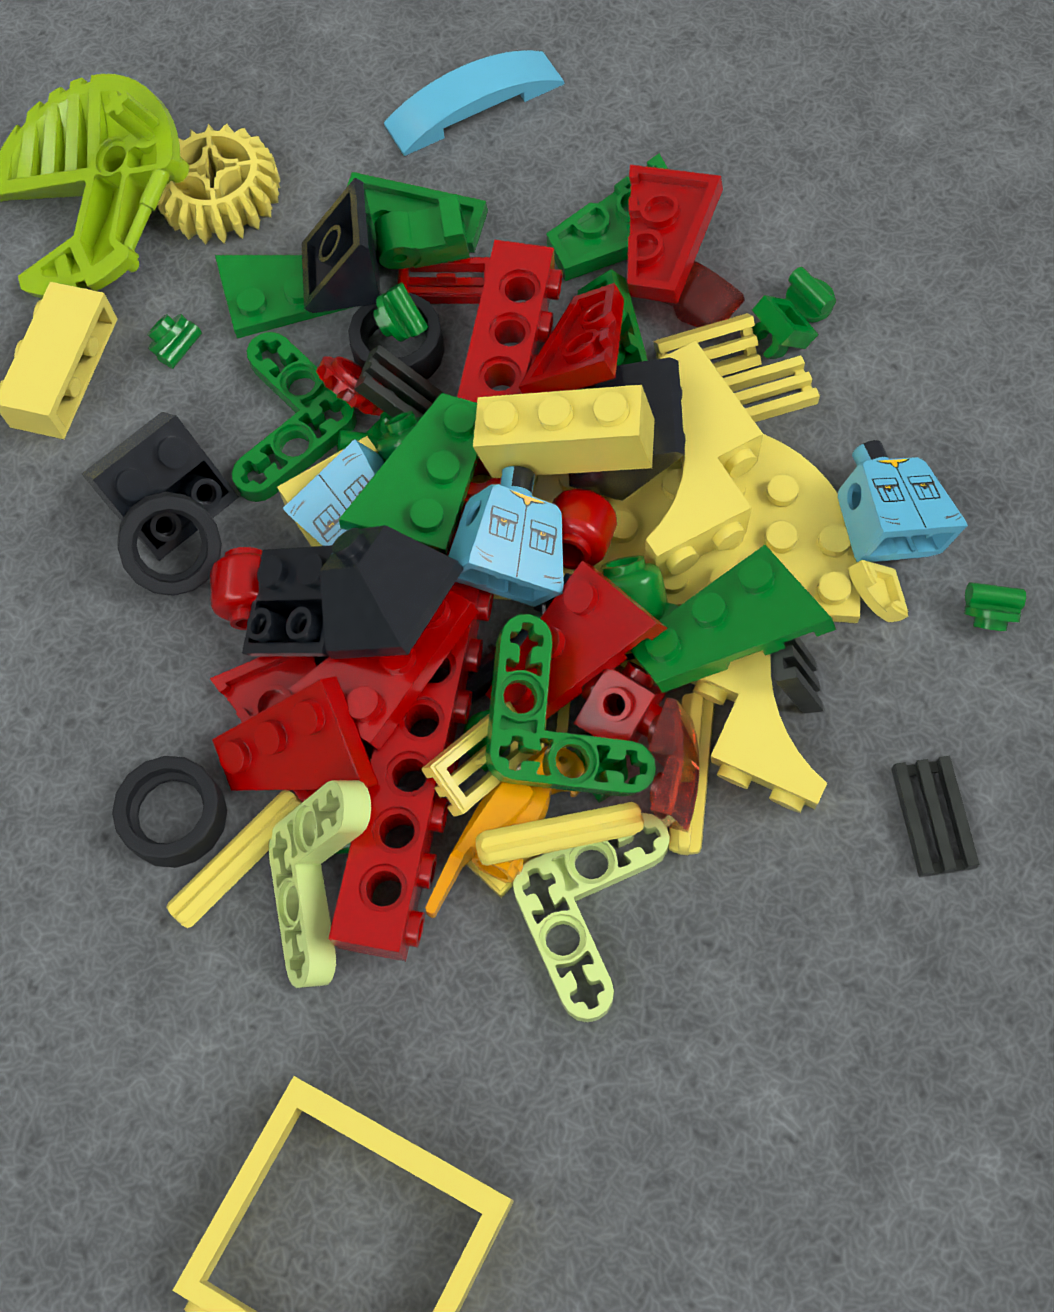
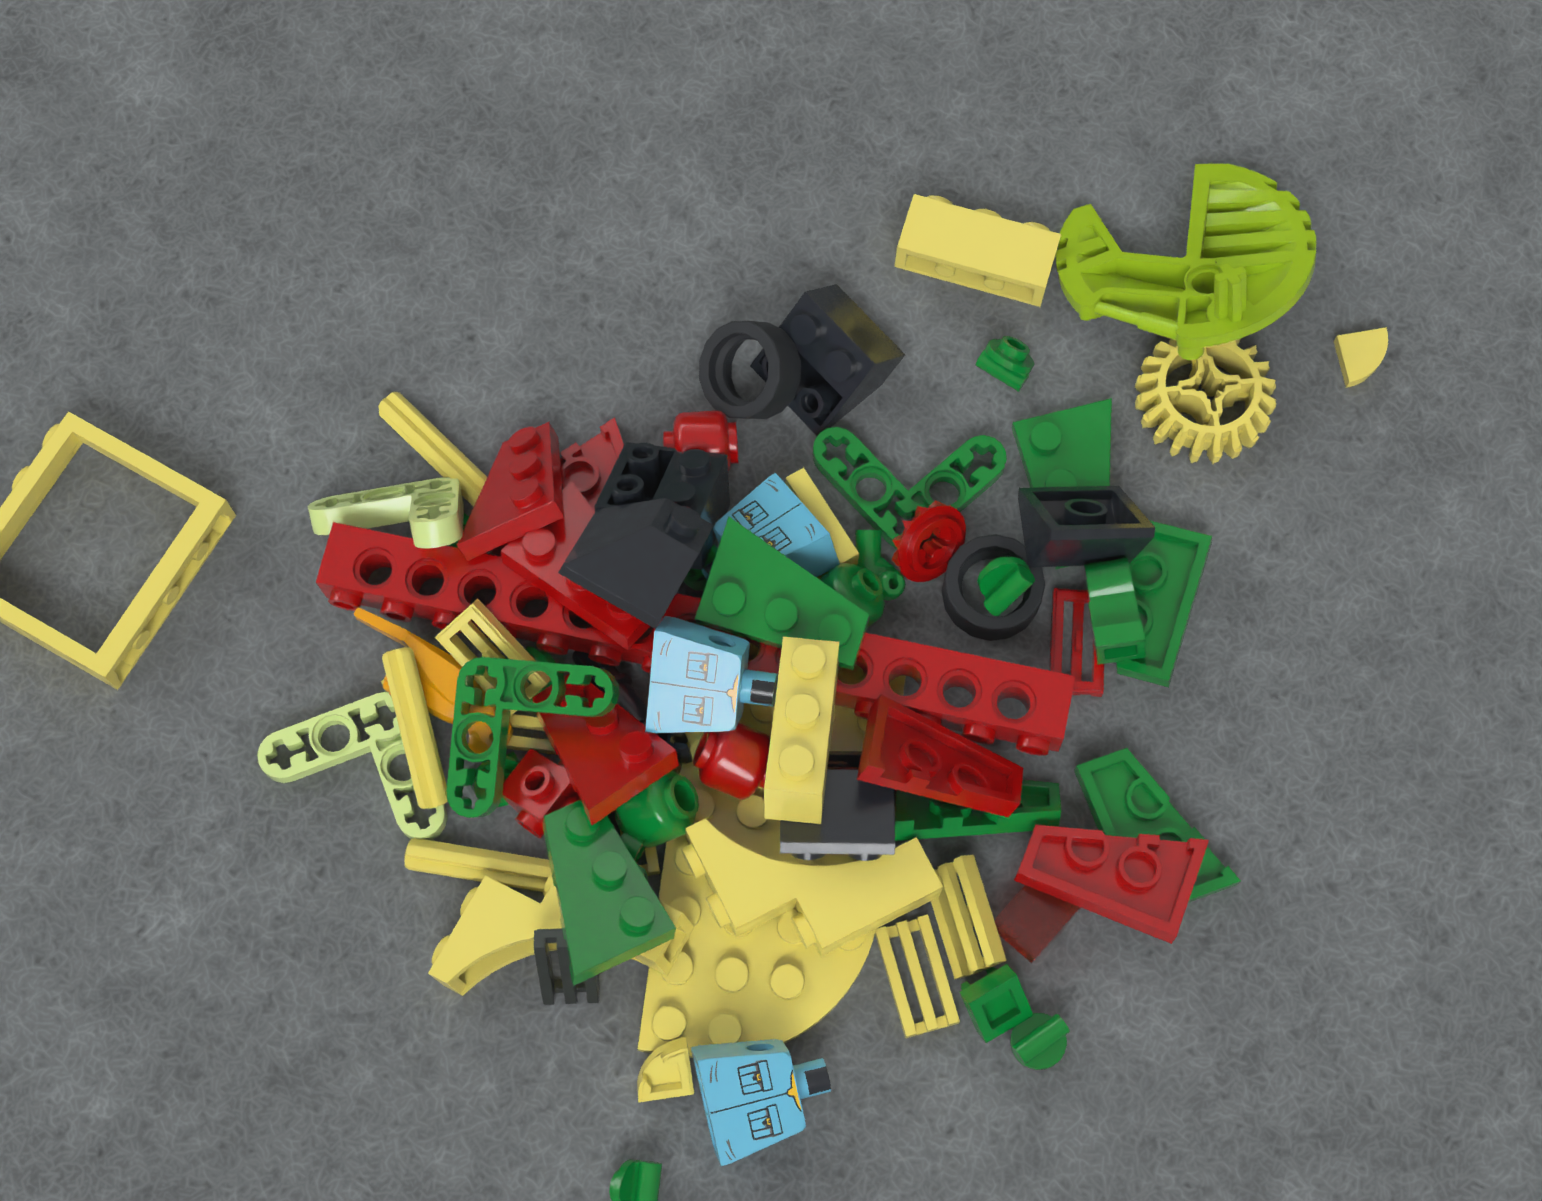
camera: 85 degrees right, 5 degrees up
(144, 780) = (475, 353): black tyre -> none
(184, 81) = (1360, 354): none -> light yellow tile
(407, 385) = (931, 595): pearl dark grey tile -> none
(468, 92) = (1338, 675): medium azure slope -> none
(675, 747) = (492, 844): clear red slope -> none
(924, 771) = (374, 1104): pearl dark grey tile -> none

